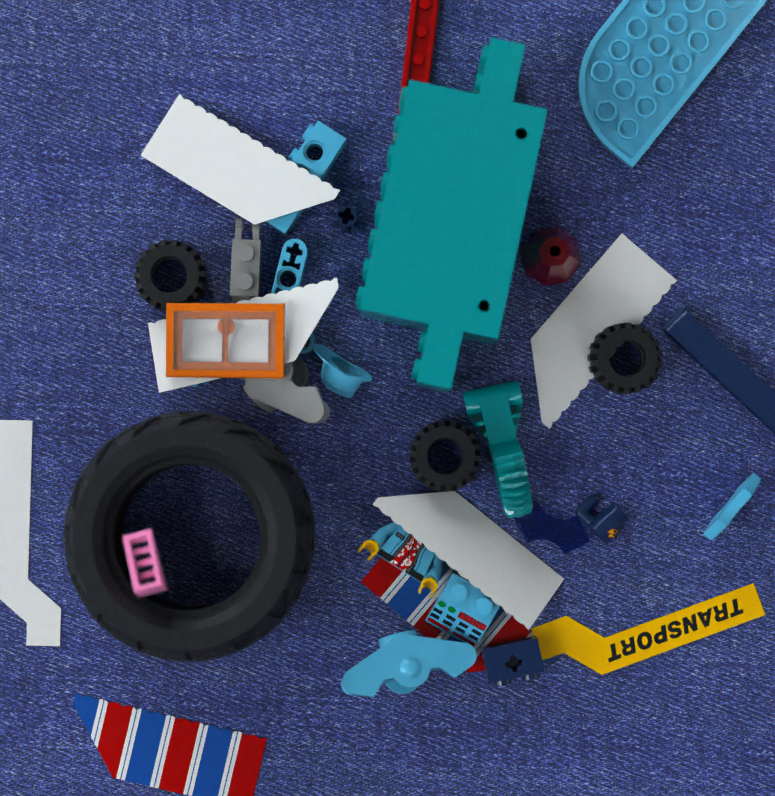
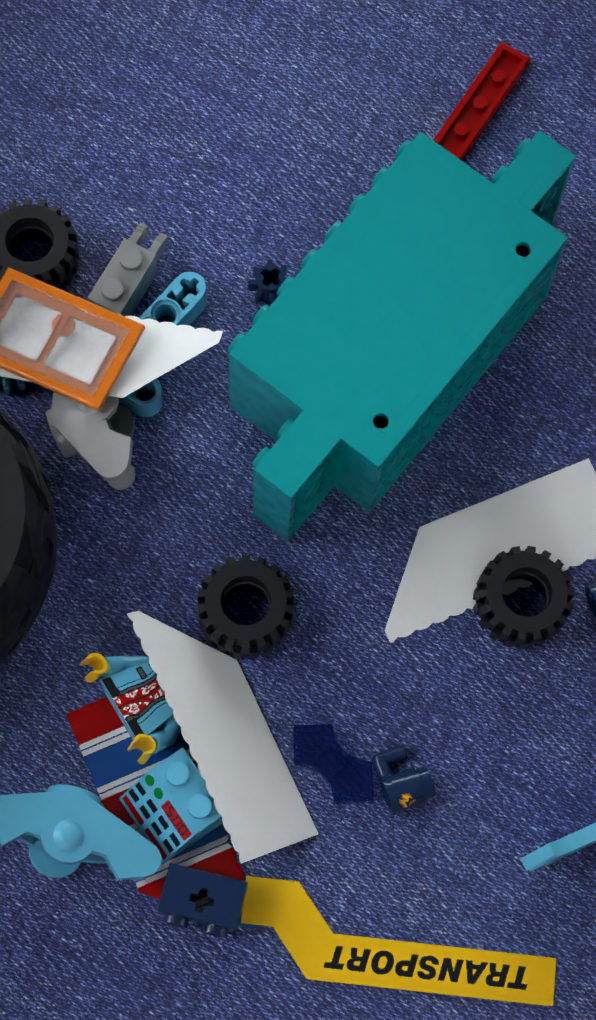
camera: 20 degrees right, 15 degrees down
(232, 166) = (168, 167): white sticker -> none
(331, 145) = (200, 252): medium azure brick -> none
(340, 374) = (167, 453): medium azure piece -> none
(496, 416) = (332, 594): teal arm -> none
(544, 267) = (490, 442): dark red cone -> none

